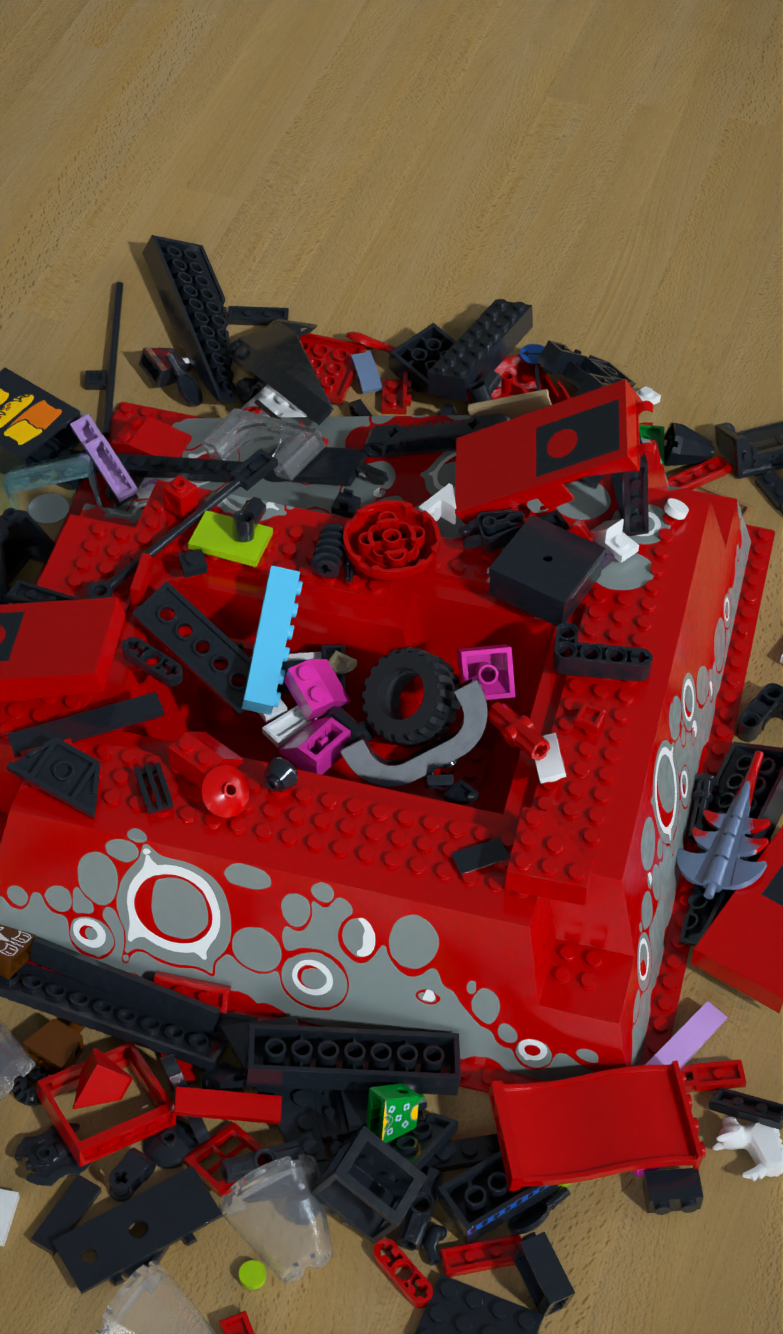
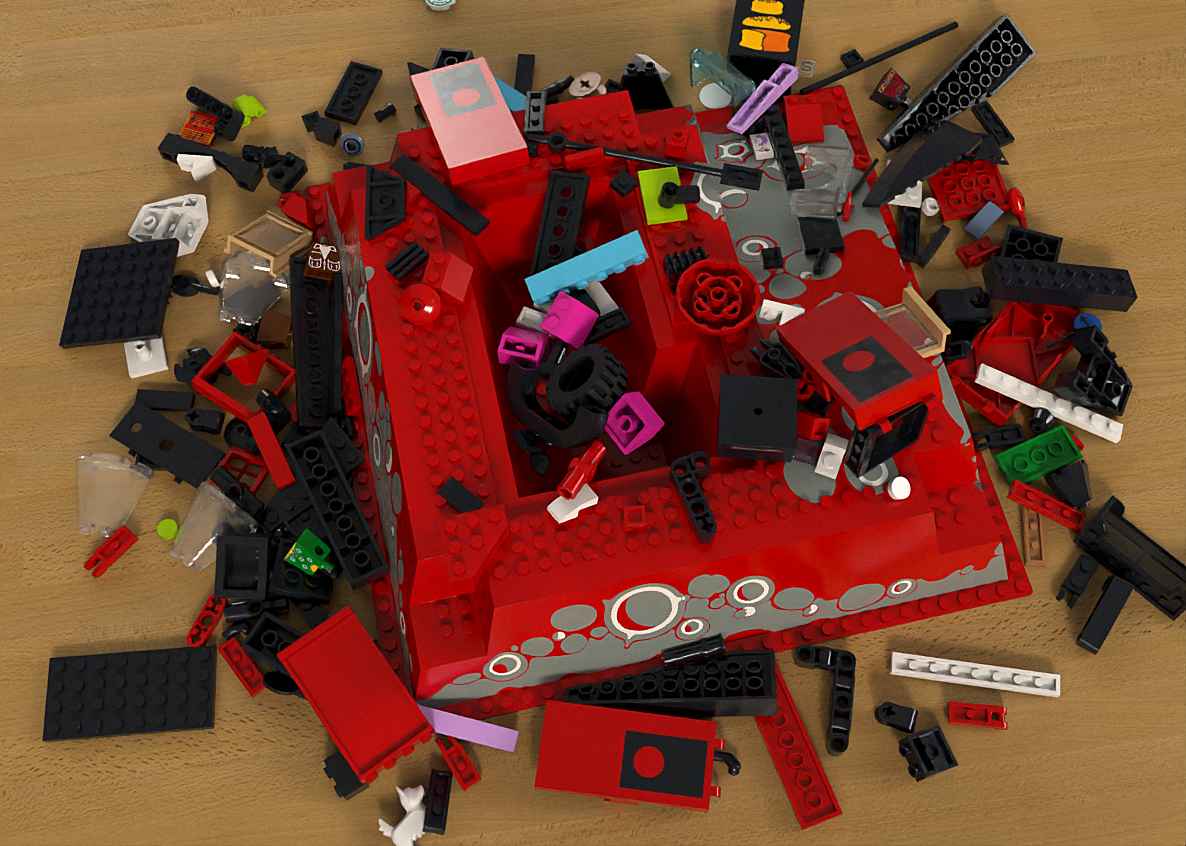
camera: 65 degrees right, 15 degrees up
(156, 671) = (515, 197): black beam -> none
(186, 383) = (882, 113): black piece -> none
(280, 775) = (455, 331): black cone -> none
(342, 663) = (607, 326): dark tan tile -> none
(384, 439) = (870, 283): black gear -> none
(483, 388) = (1004, 303): black piece -> none
(543, 1273) = (230, 710): black window -> none
(721, 864) = (636, 687): sand blue animal -> none

